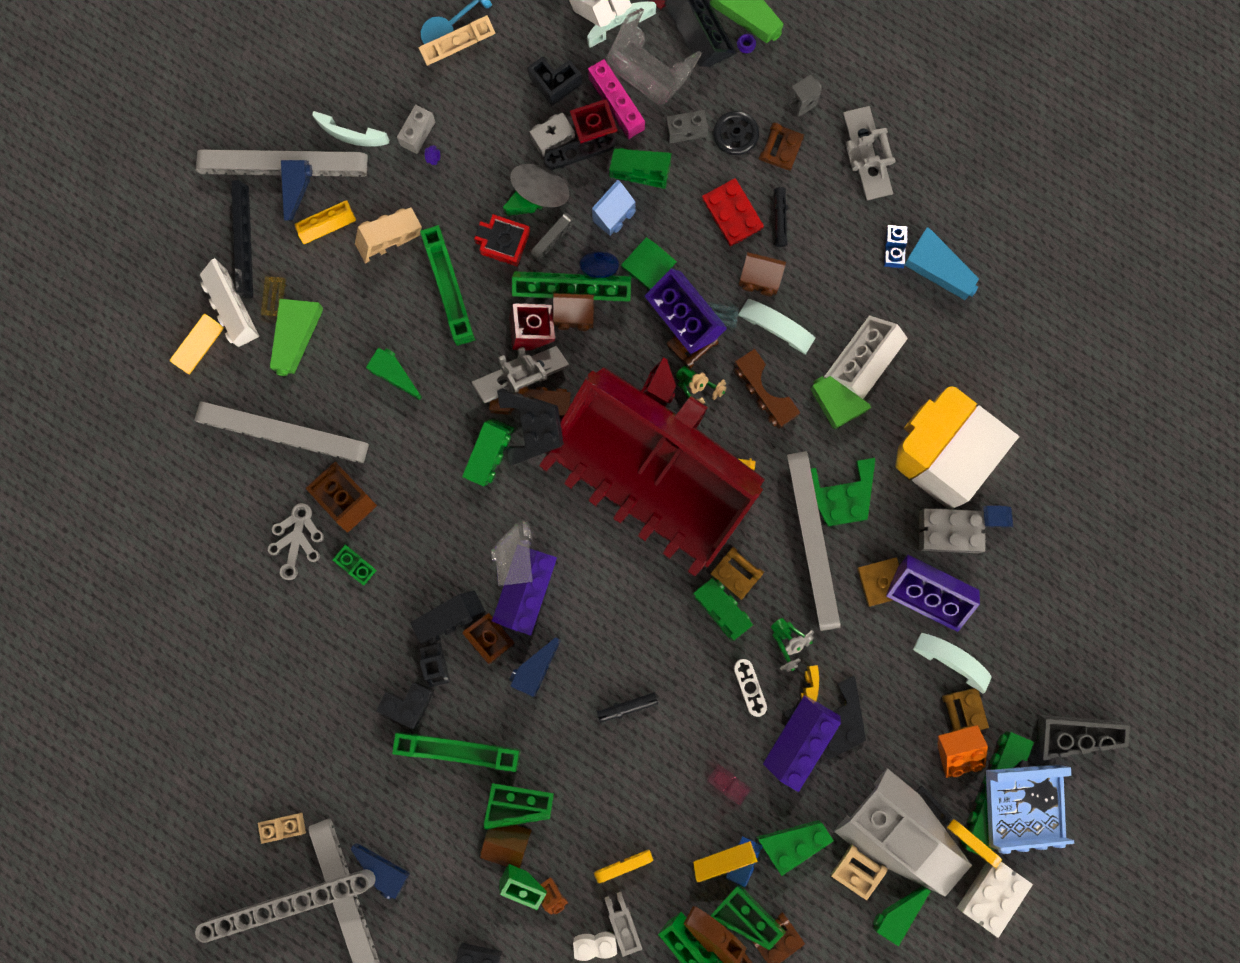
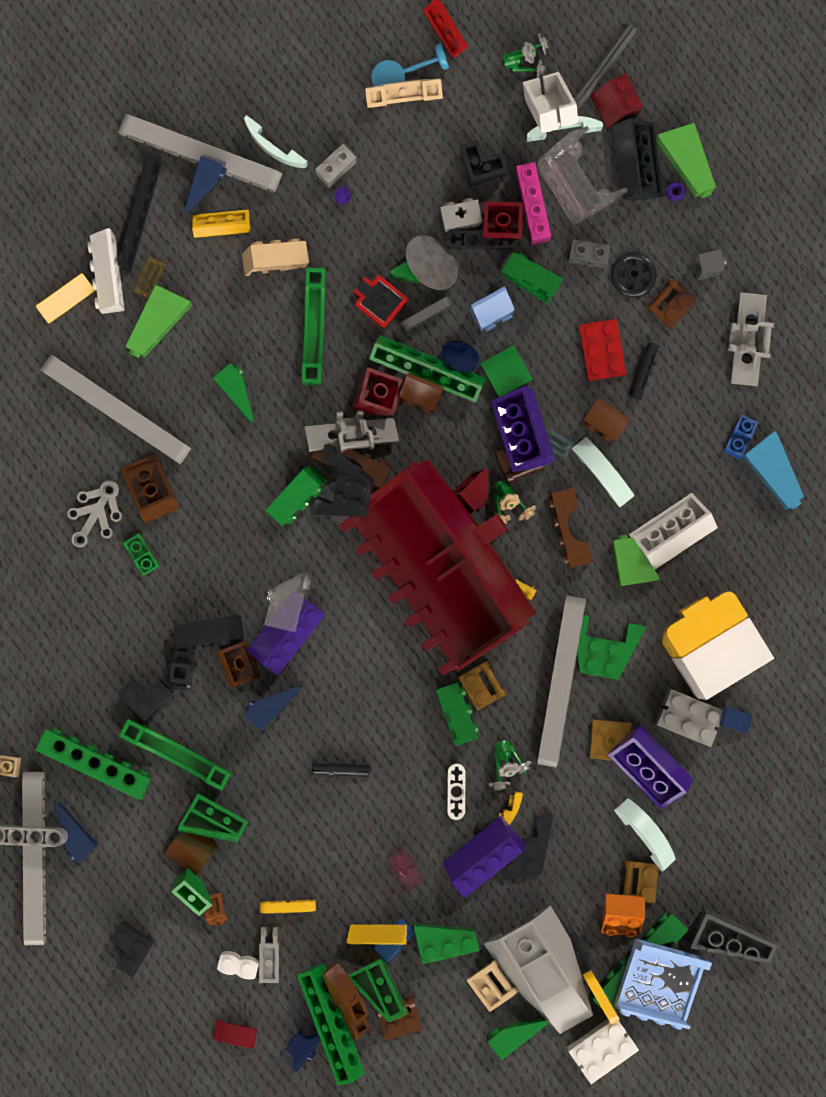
camera: 10 degrees right, 5 degrees up
(325, 791) = (48, 747): none -> green brick

